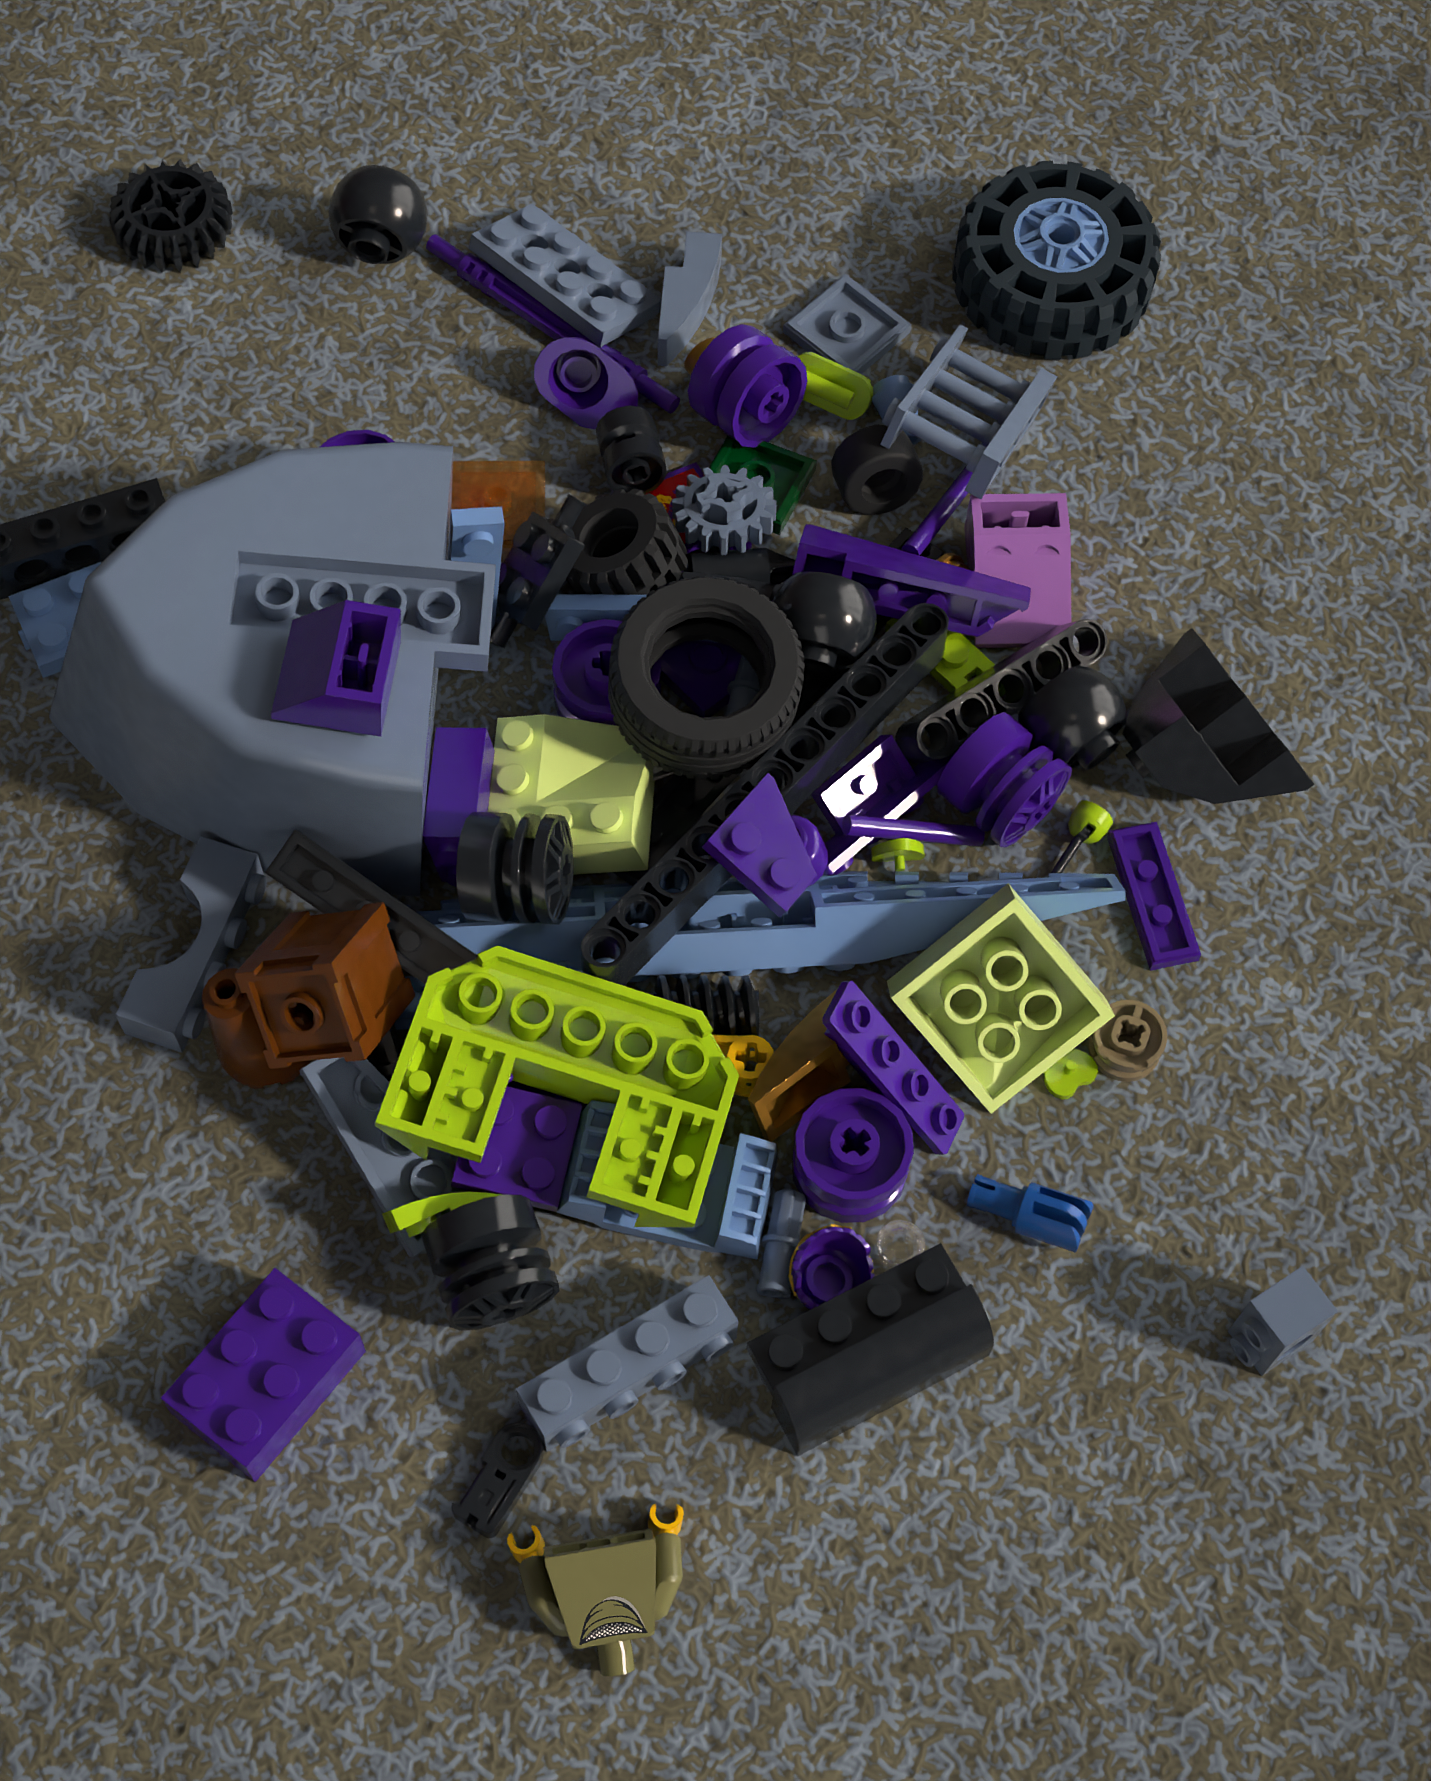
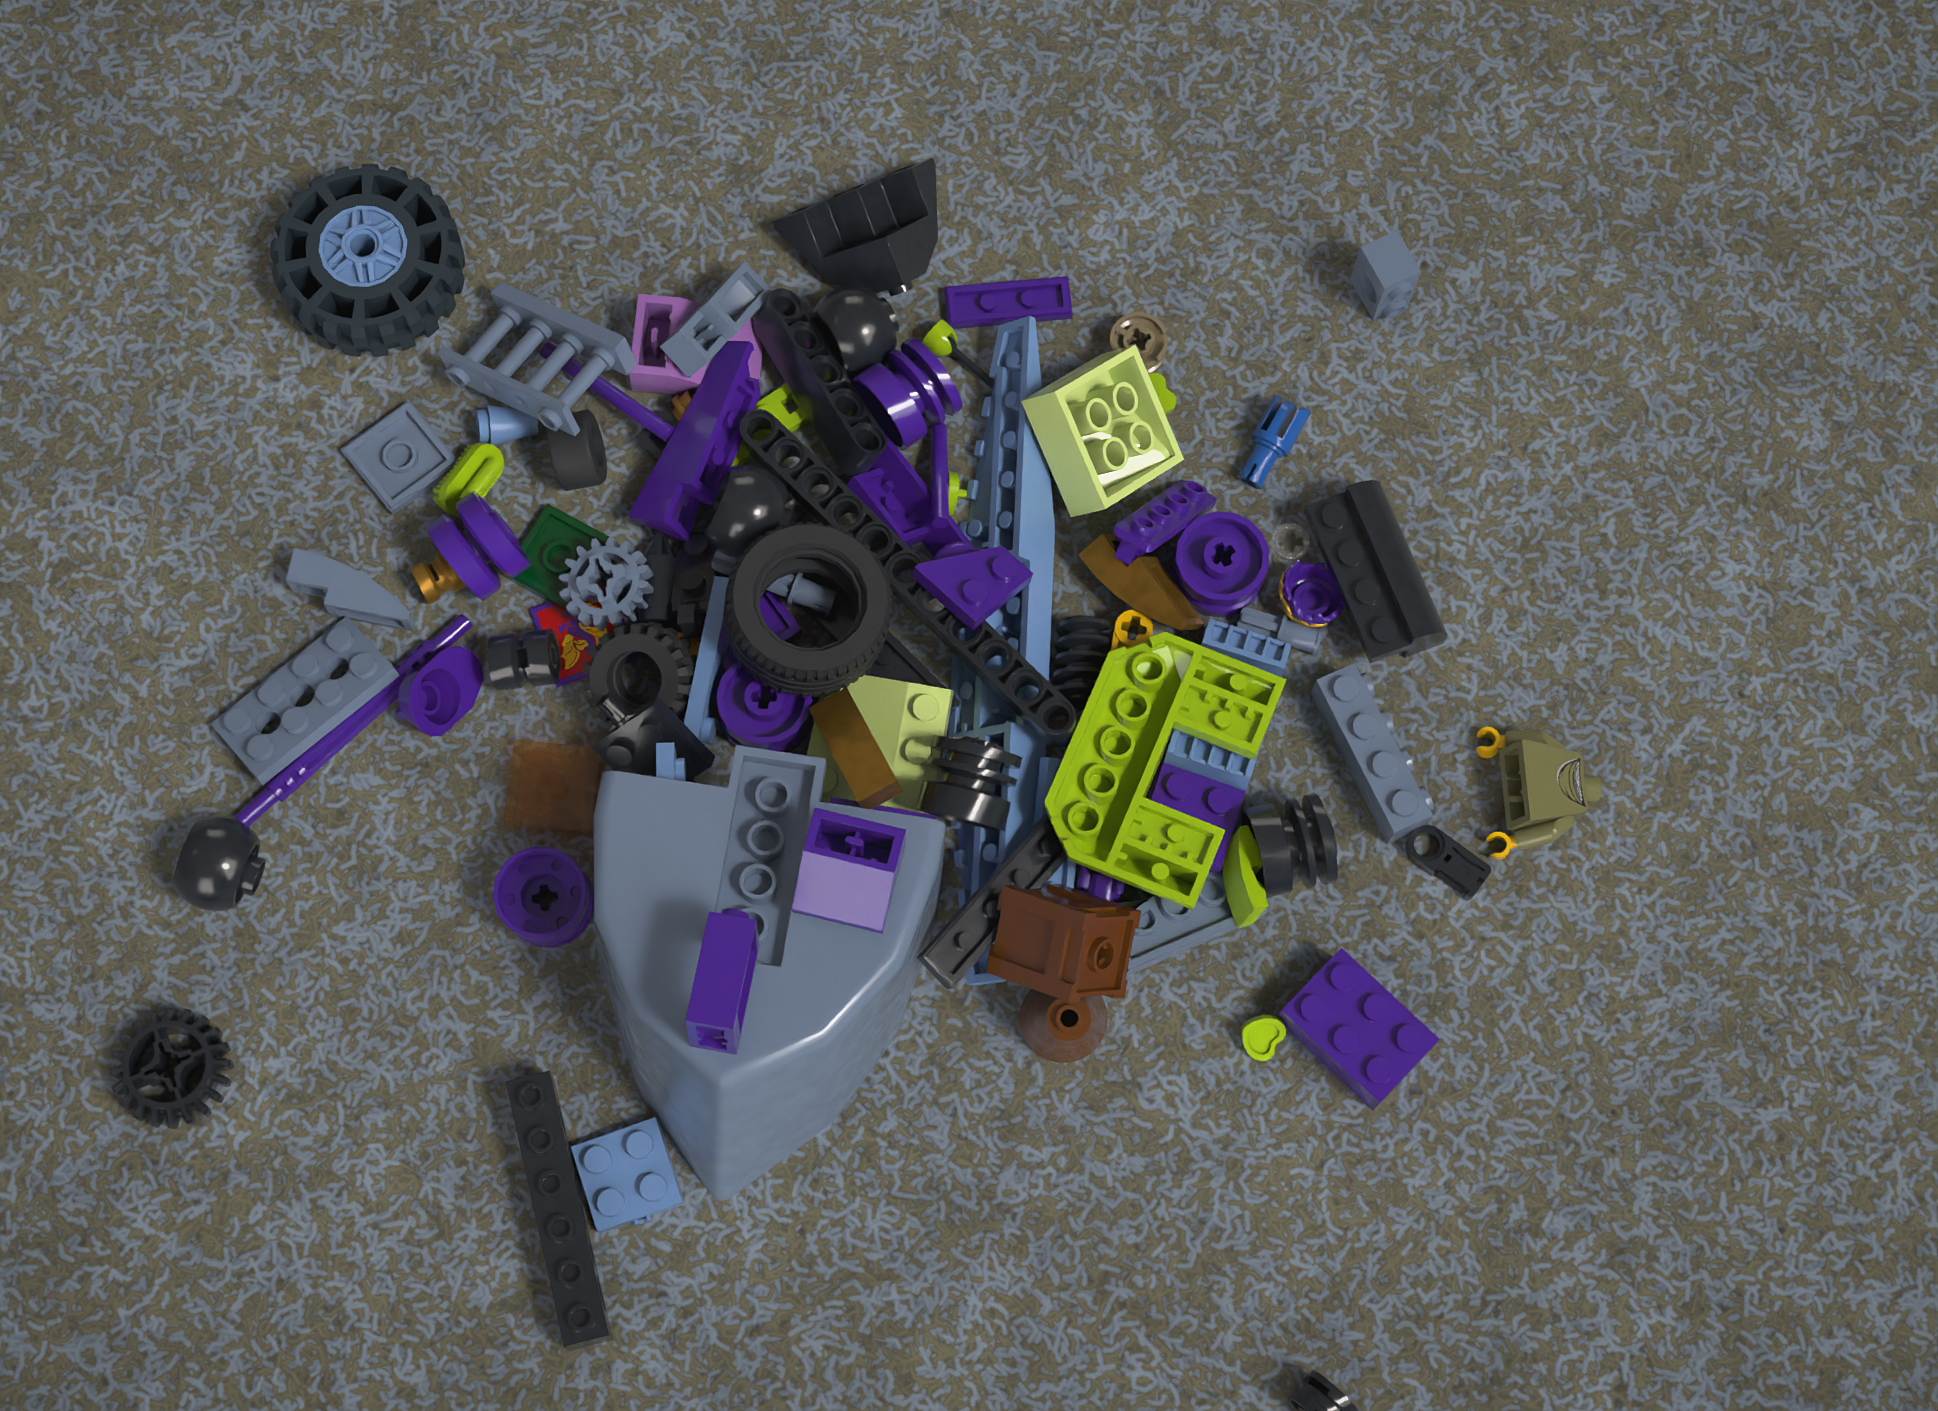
camera: 85 degrees left, 10 degrees up
(166, 1000) = (925, 1048): sand blue arch -> none
(186, 565) = (722, 981): none -> dark purple window
(253, 1262) = (1261, 1036): none -> lime piece
(541, 746) = (855, 750): none -> pearl gold slope
(1052, 570) = (716, 319): none -> sand blue slope

